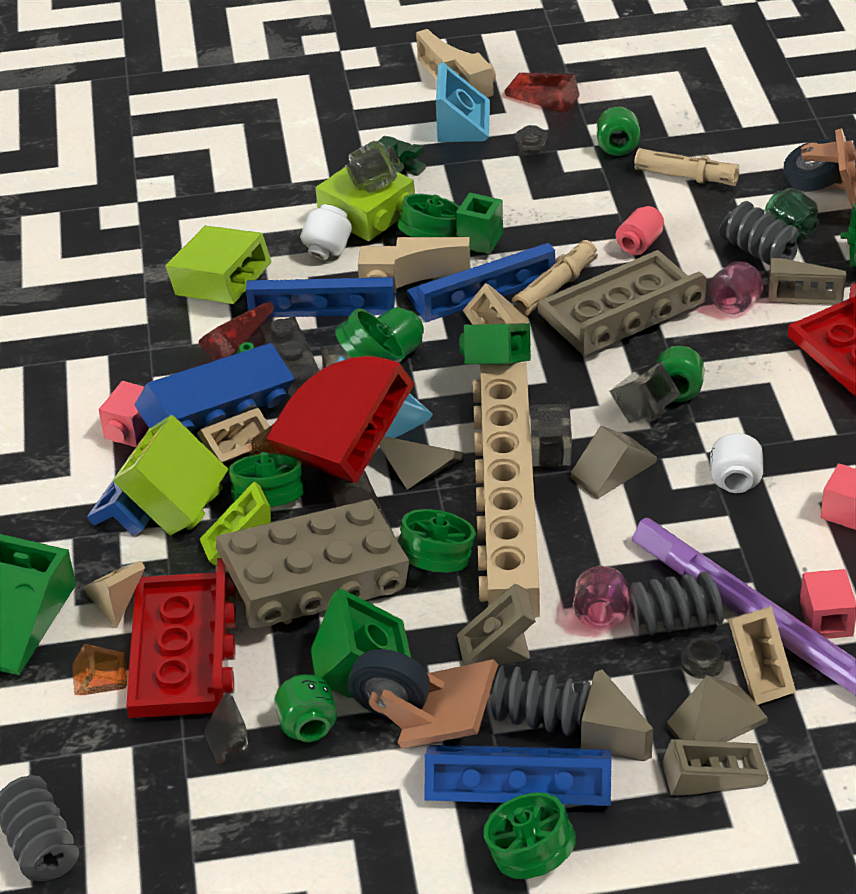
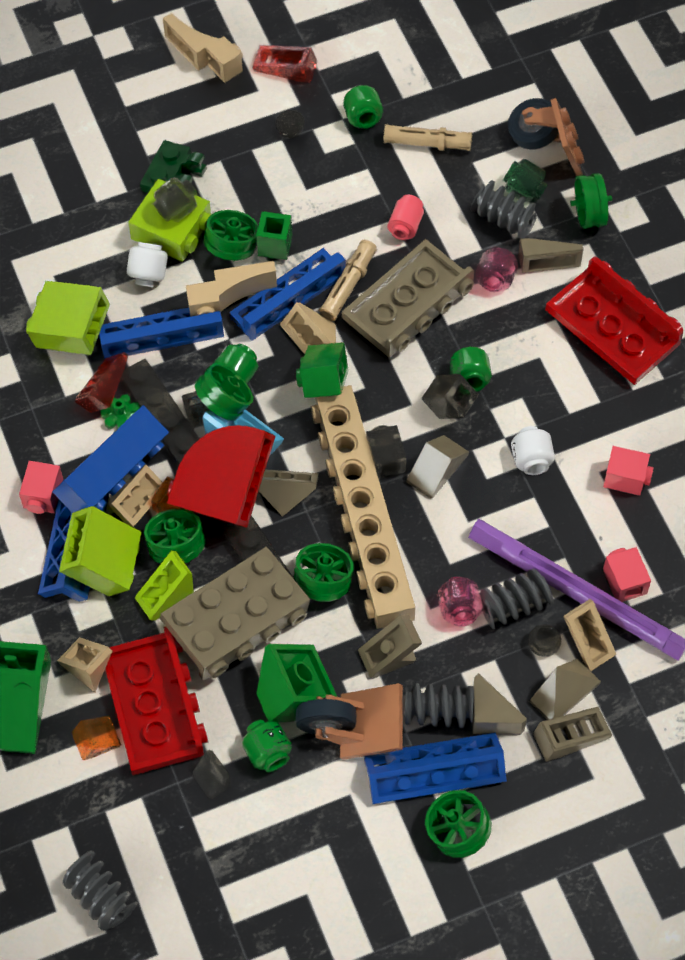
camera: 15 degrees left, 20 degrees up
(460, 109) = (222, 99): medium azure slope -> none

